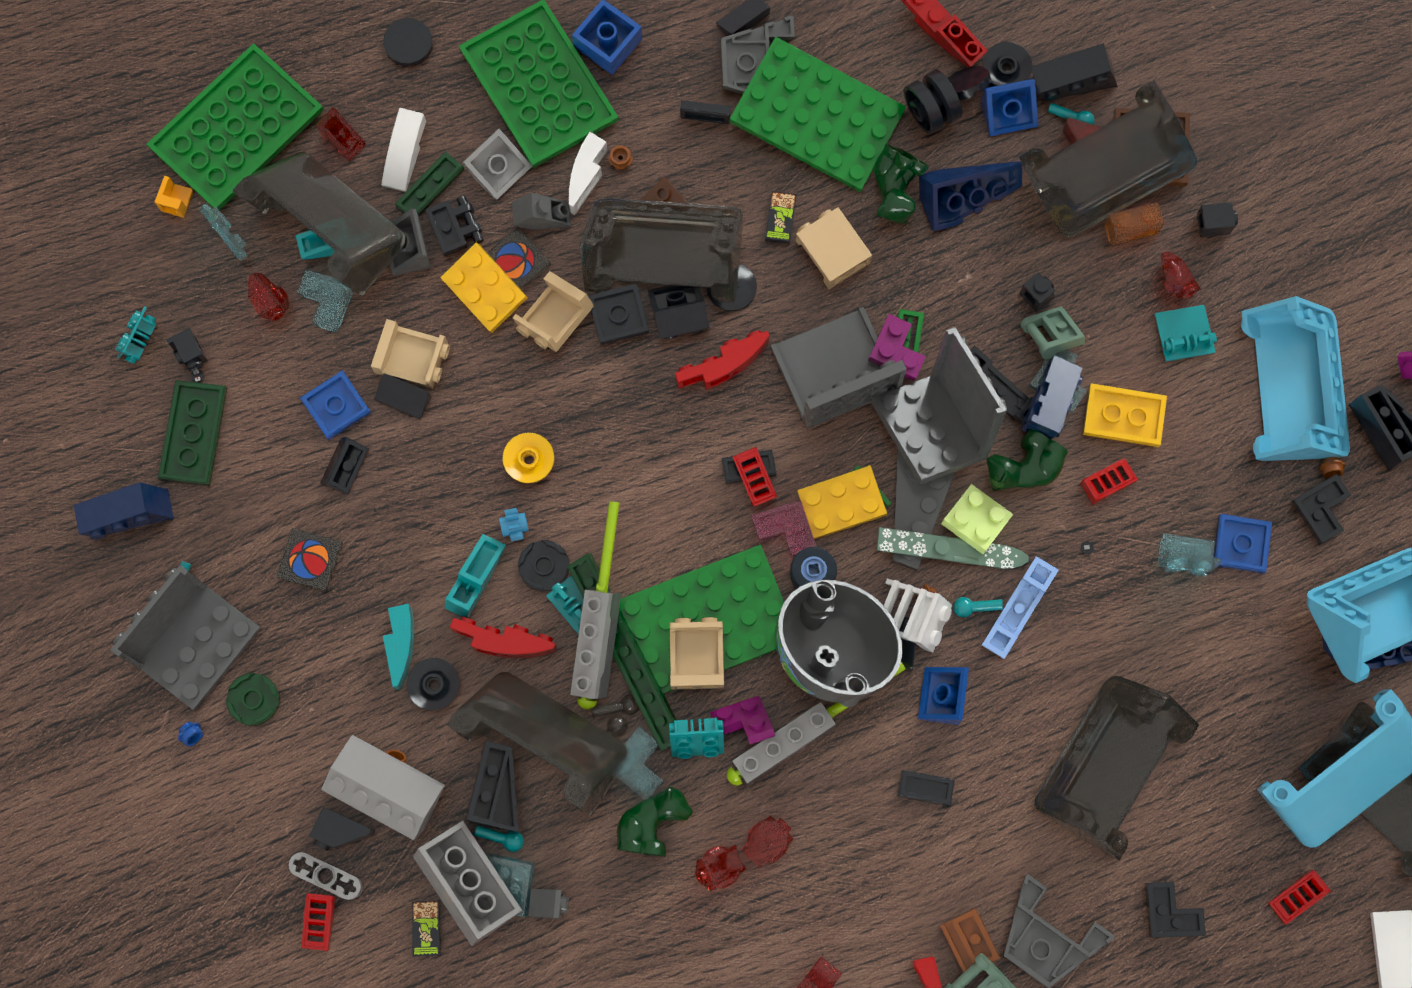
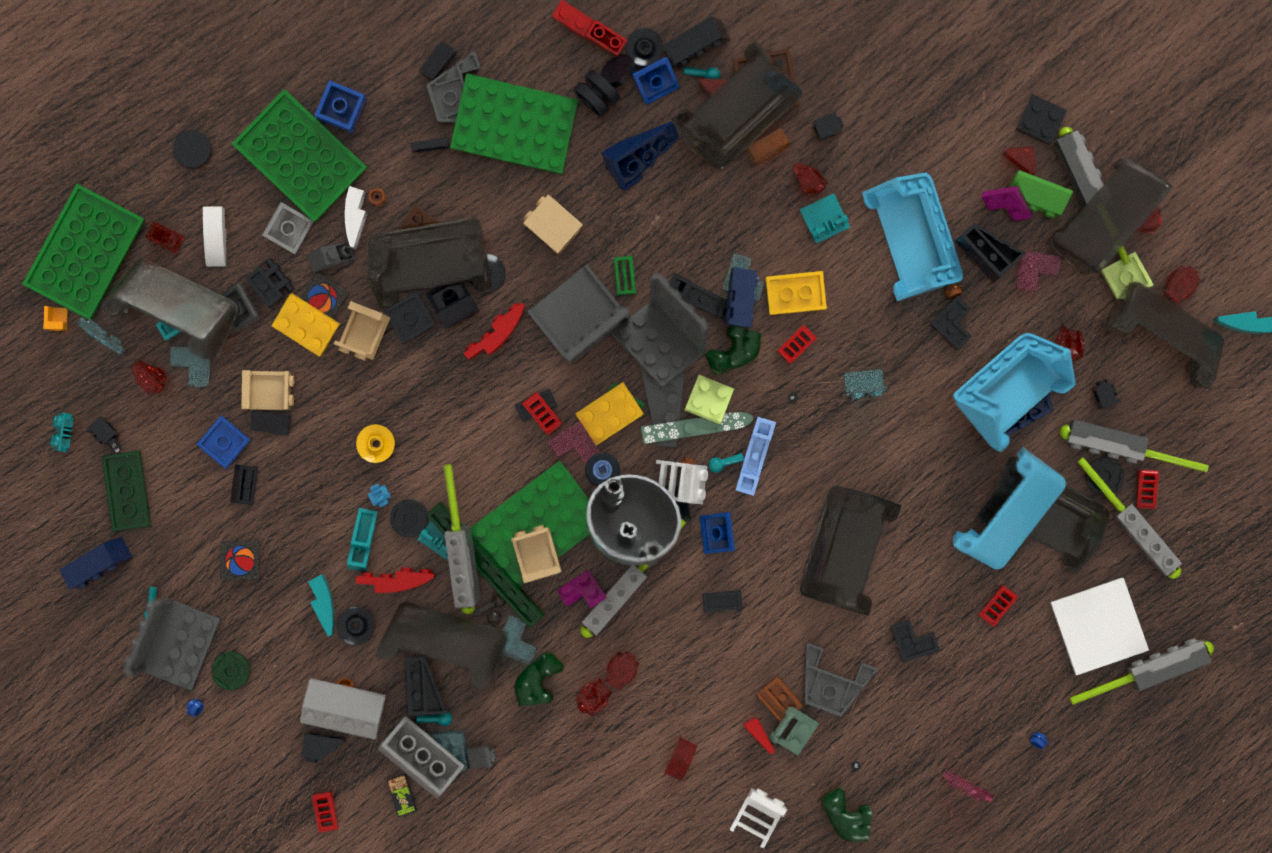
camera: 20 degrees left, 10 degrees up
(304, 874) = (334, 786): light grey beam -> none
(430, 185) = (242, 257): dark green tile -> none
(696, 743) = (561, 614): teal hinge -> none
(780, 217) = (508, 210): tile -> none
(890, 347) = (614, 292): magenta plate -> none
(893, 174) = (582, 155): dark green animal -> none
(1037, 291) = (710, 217): black brick -> none
(1058, 326) = (733, 241): sand green plate -> none
(1243, 543) = (902, 364): blue tile -> none

